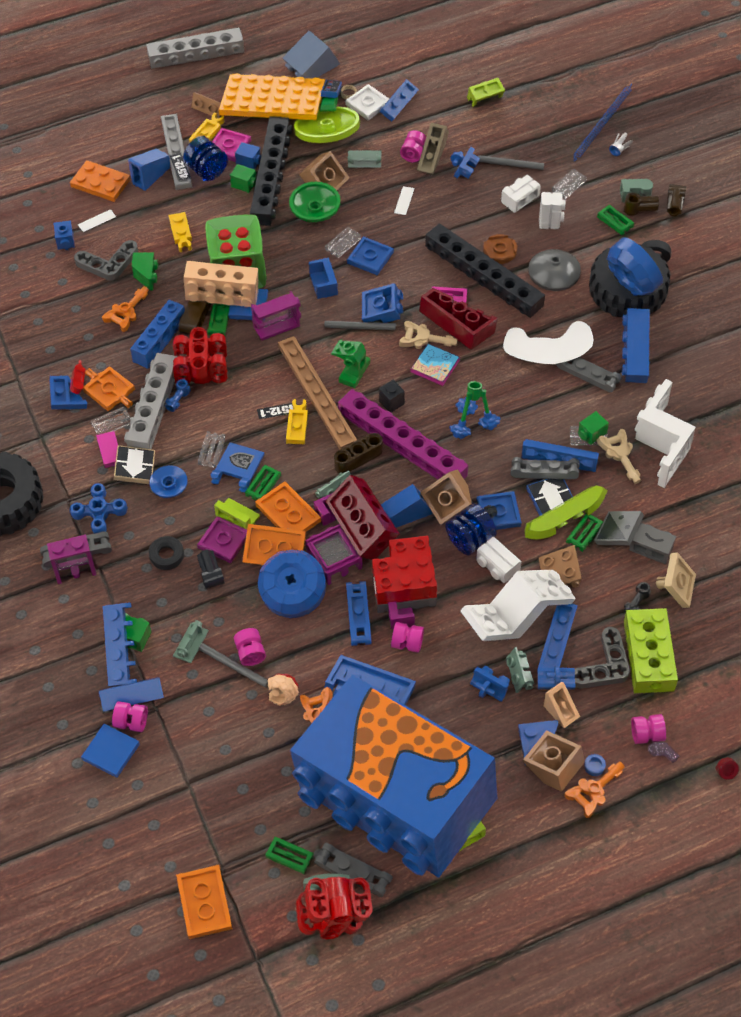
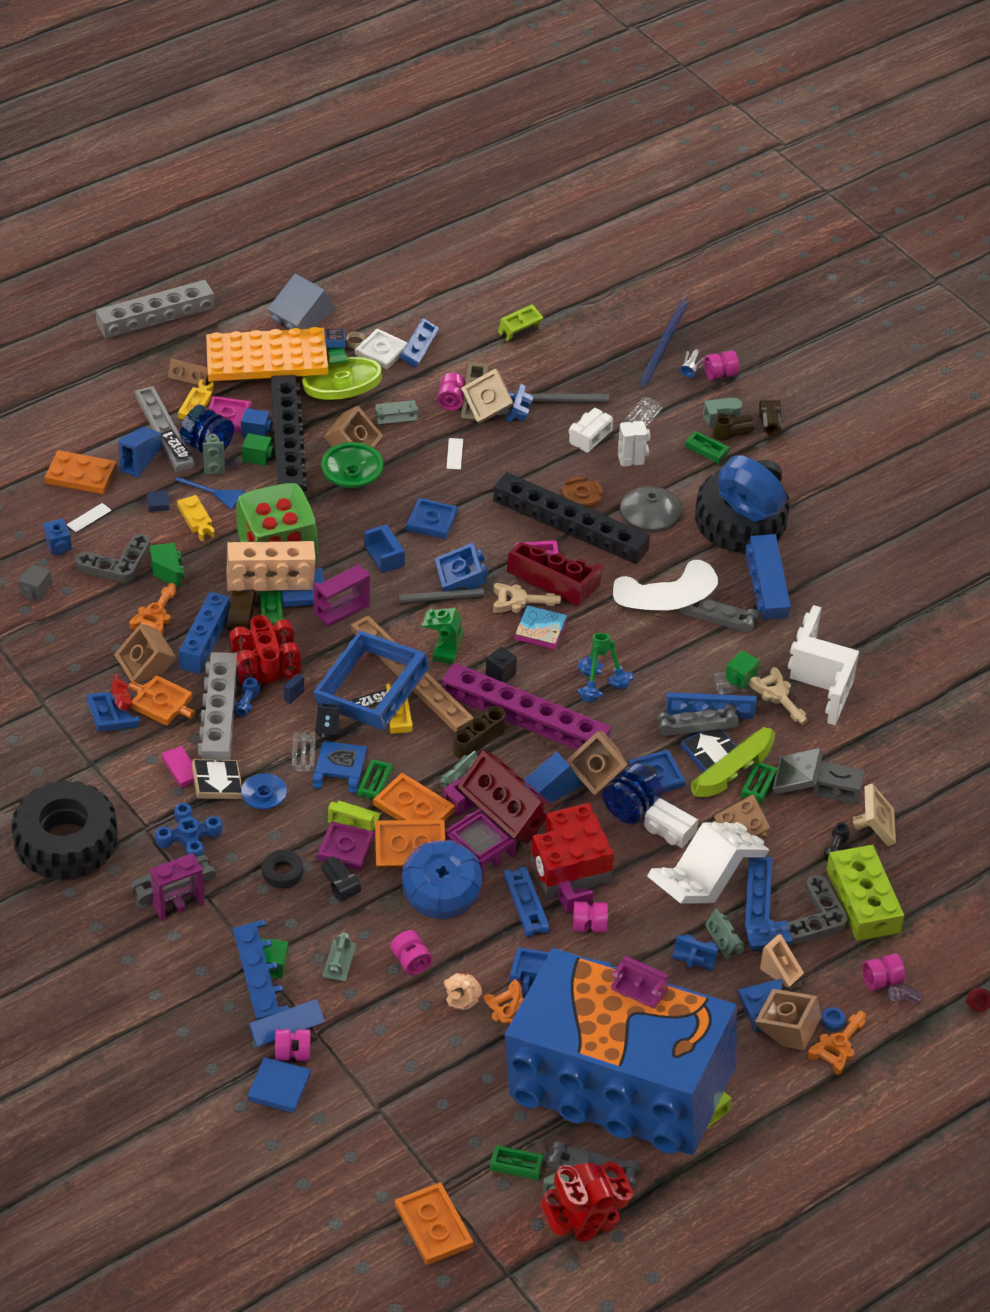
camera: 15 degrees left, 10 degrees down
(37, 273) = (35, 583): none -> dark grey brick
(106, 346) = (145, 654): none -> medium nougat slope
(112, 424) = (176, 738): clear tile -> none
(154, 213) = (158, 501): none -> dark blue tile
(204, 180) = (213, 455): none -> sand green hinge
(207, 214) = (227, 497): none -> blue piece
(217, 393) = (293, 688): none -> dark blue tile
(234, 665) = (396, 976): dark grey bar -> none
(235, 425) = (327, 720): none -> black brick
(297, 410) = (380, 717): none -> blue window
(345, 243) = (398, 508): clear tile -> none
(415, 723) = (640, 982): none -> magenta hinge
(440, 154) = (487, 396): none -> tan tile
(647, 148) = (720, 365): none -> dark pink wheel

